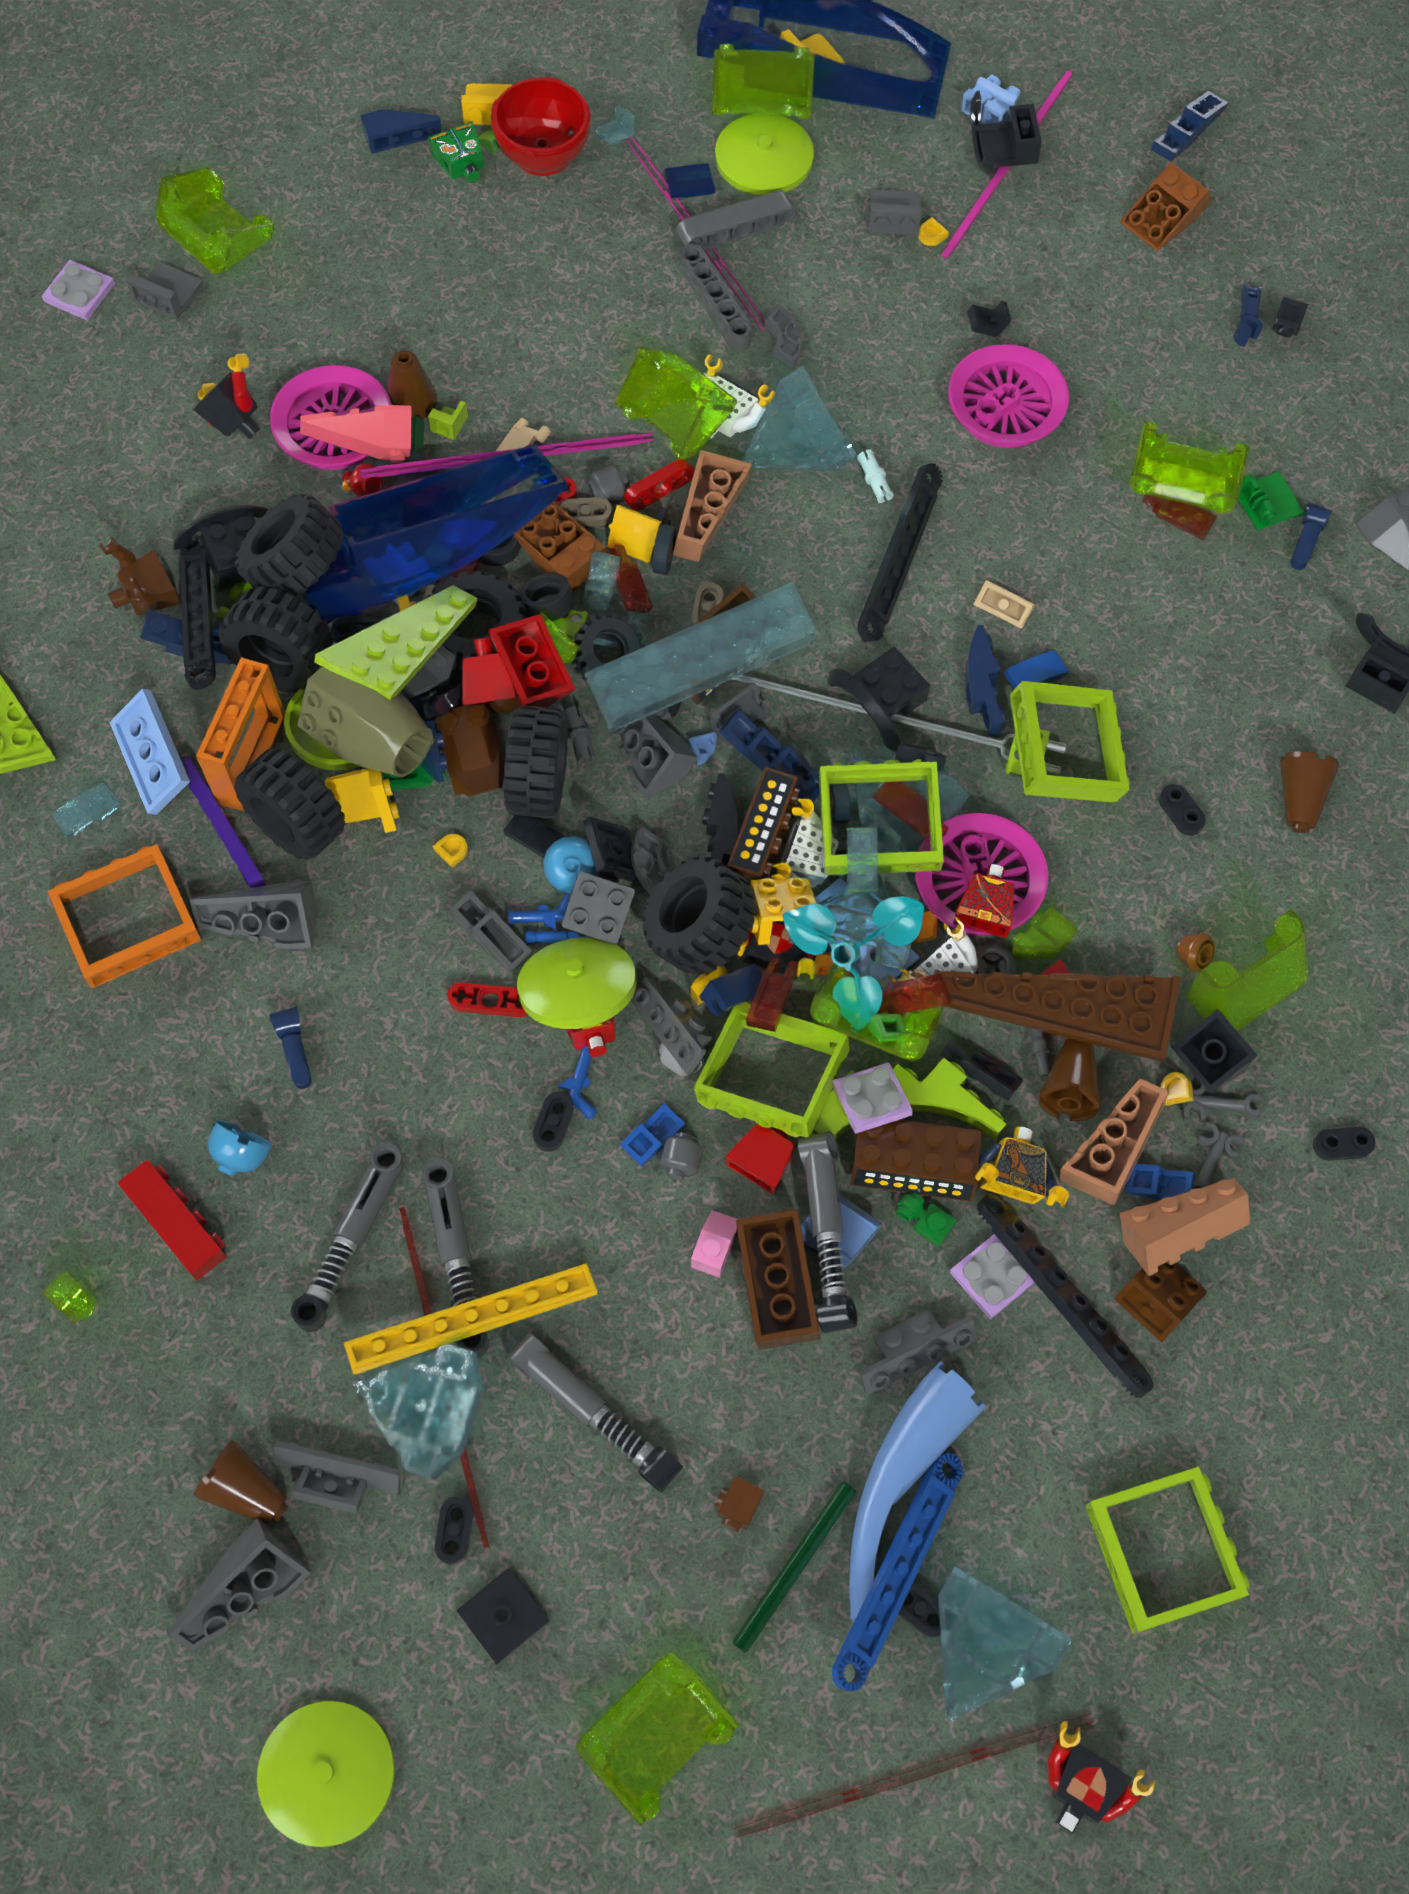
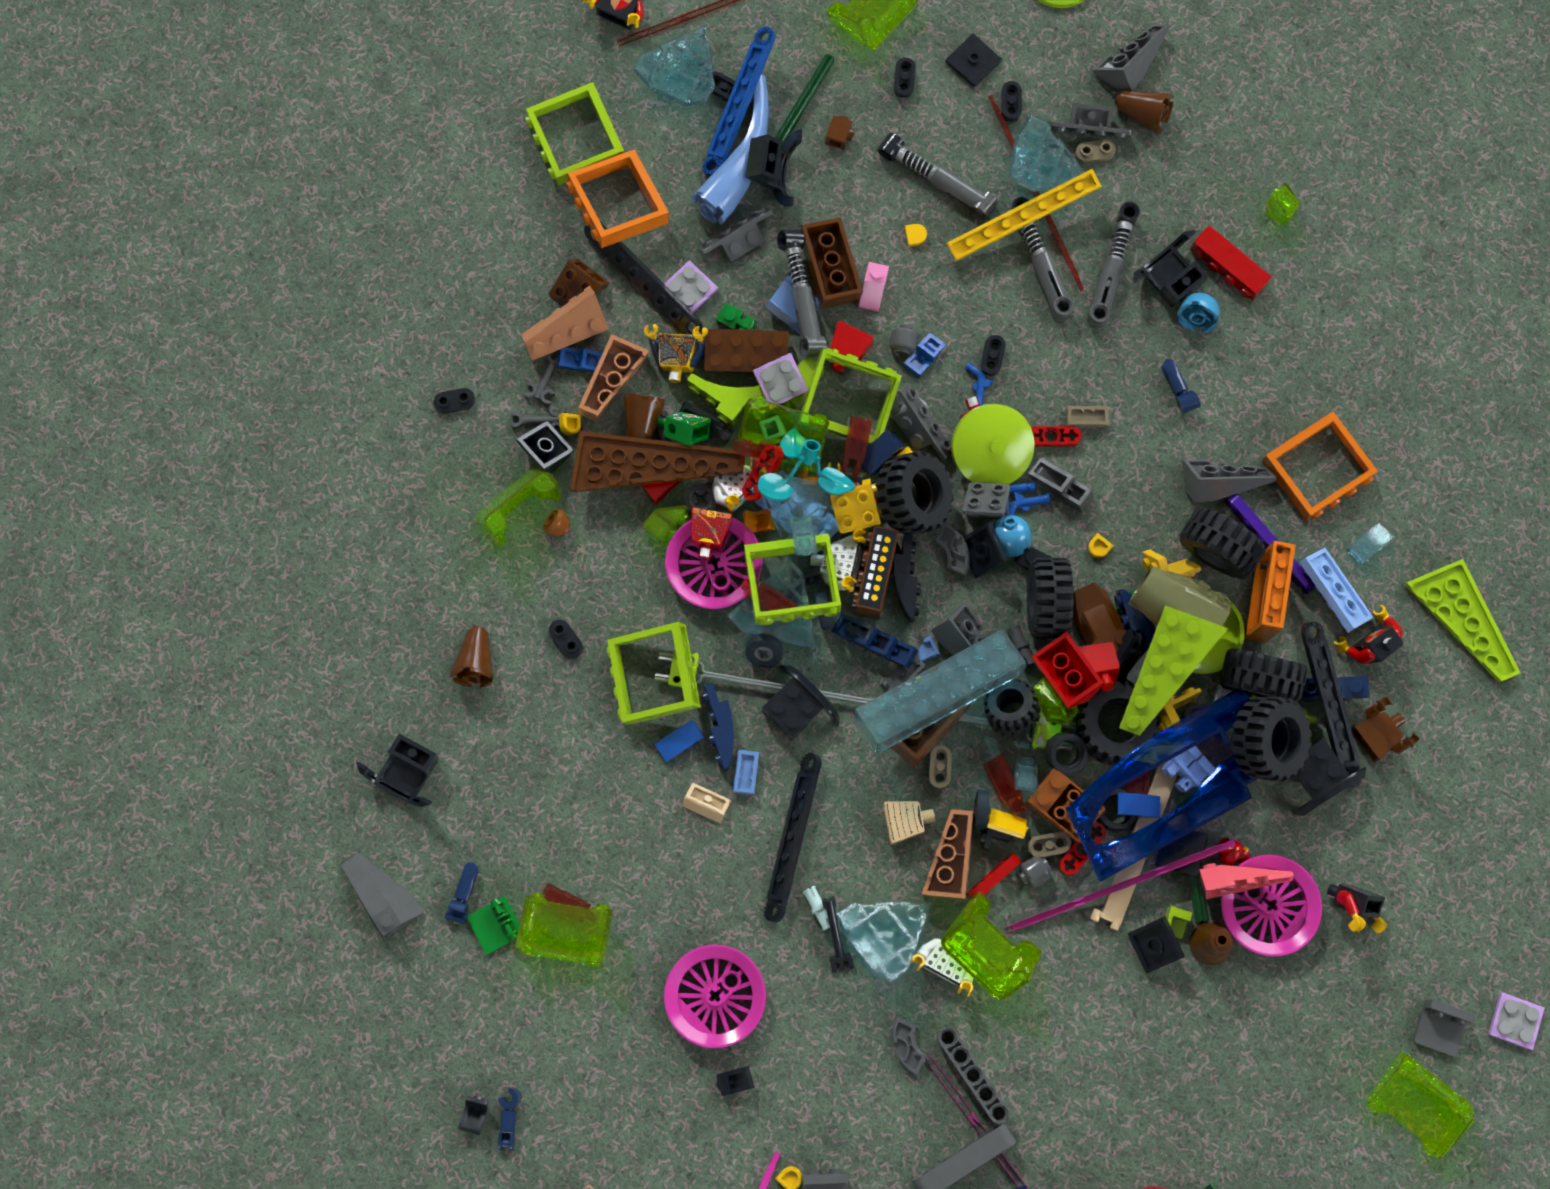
camera: 175 degrees right, 10 degrees up
(114, 681) = (1377, 644): none -> torso
(264, 1209) = (1172, 273): none -> black piece
(335, 1430) = (1096, 151): none -> dark tan plate
(433, 1020) = (1087, 416): none -> dark tan plate
(478, 393) = (1156, 944): none -> black plate
(620, 1593) = (904, 78): none -> black plate
(639, 1323) = (915, 234): none -> yellow tile
(758, 553) = (906, 820): none -> tan torso
(856, 427) = (840, 957): none -> black hinge
(860, 1446) = (769, 163): none -> black piece
(900, 960) = (754, 475): none -> red beam
(953, 628) = (746, 772): none -> medium blue plate
(1013, 1051) = (685, 427): none -> green torso
(1159, 1412) = (628, 229): none -> orange window

